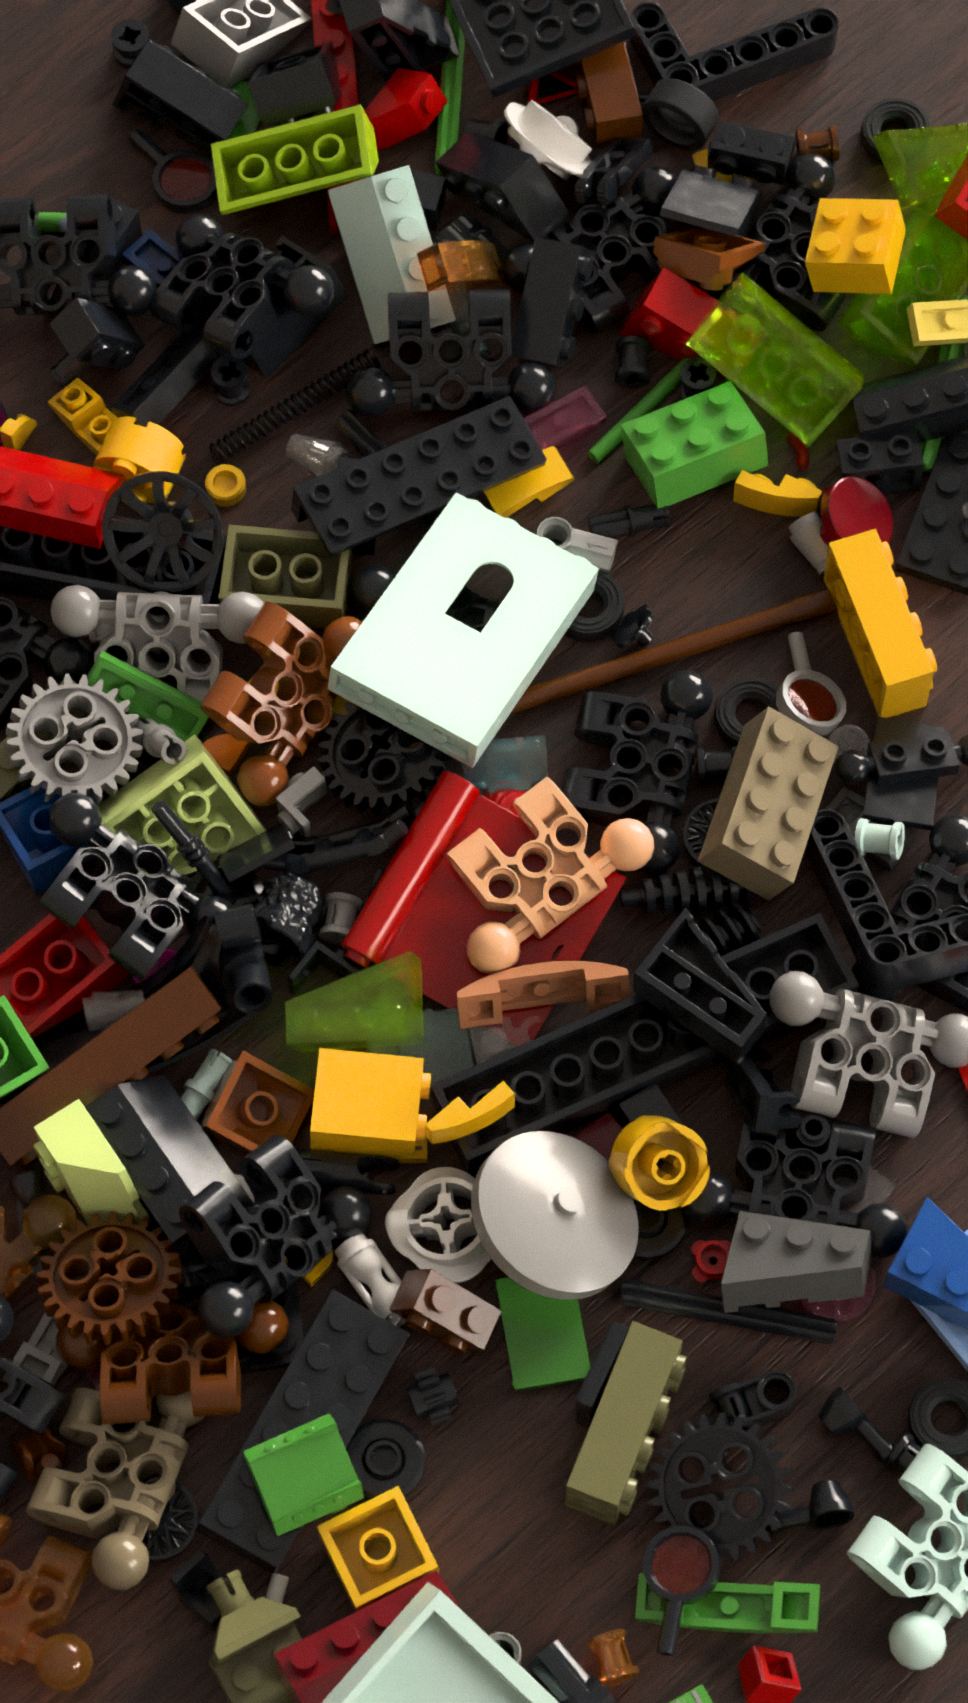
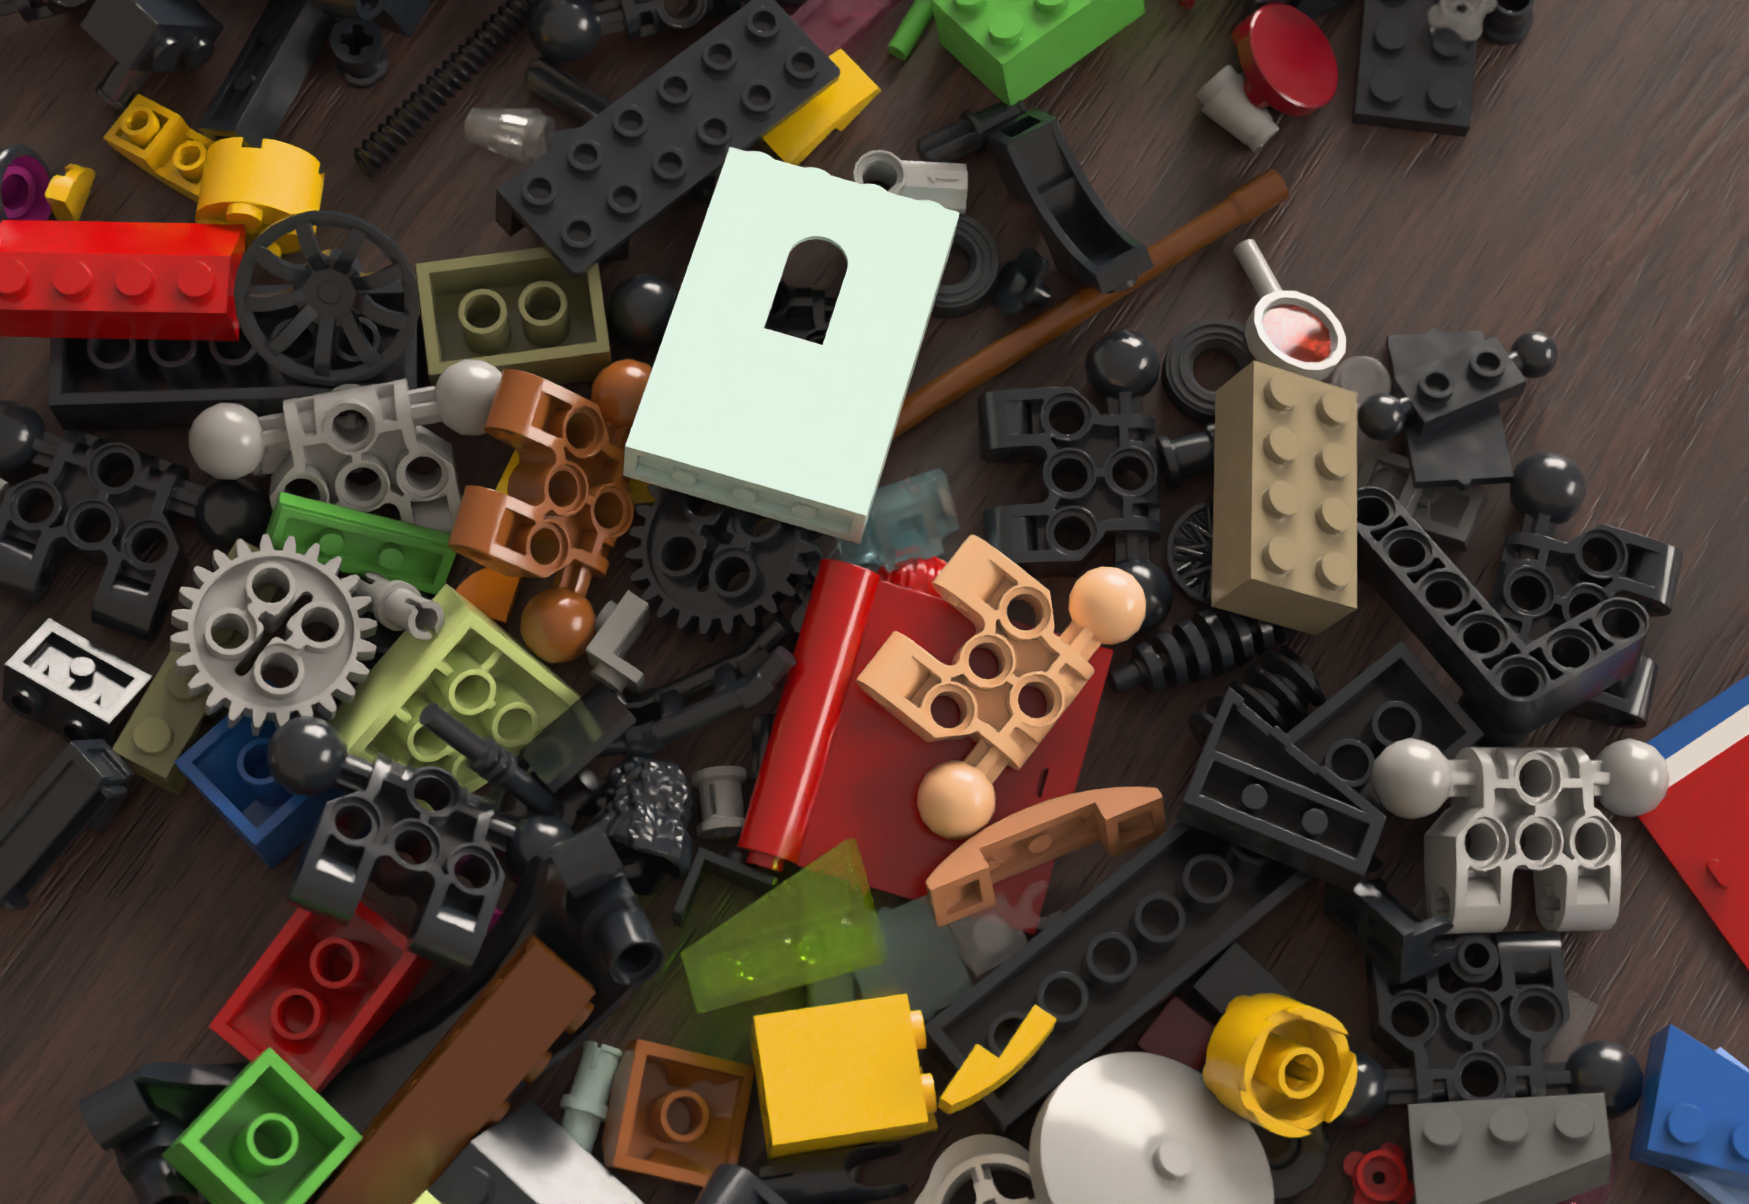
camera: 20 degrees left, 5 degrees up
(108, 1006) = (424, 1019): clear cone -> none
(225, 485) = (390, 203): yellow tile -> none
(676, 582) = (1071, 216): none -> black arch
(791, 498) = (1193, 51): yellow slope -> none
(879, 623) = (1363, 204): yellow brick -> none
(880, 838) = (1448, 511): light aqua bush -> none

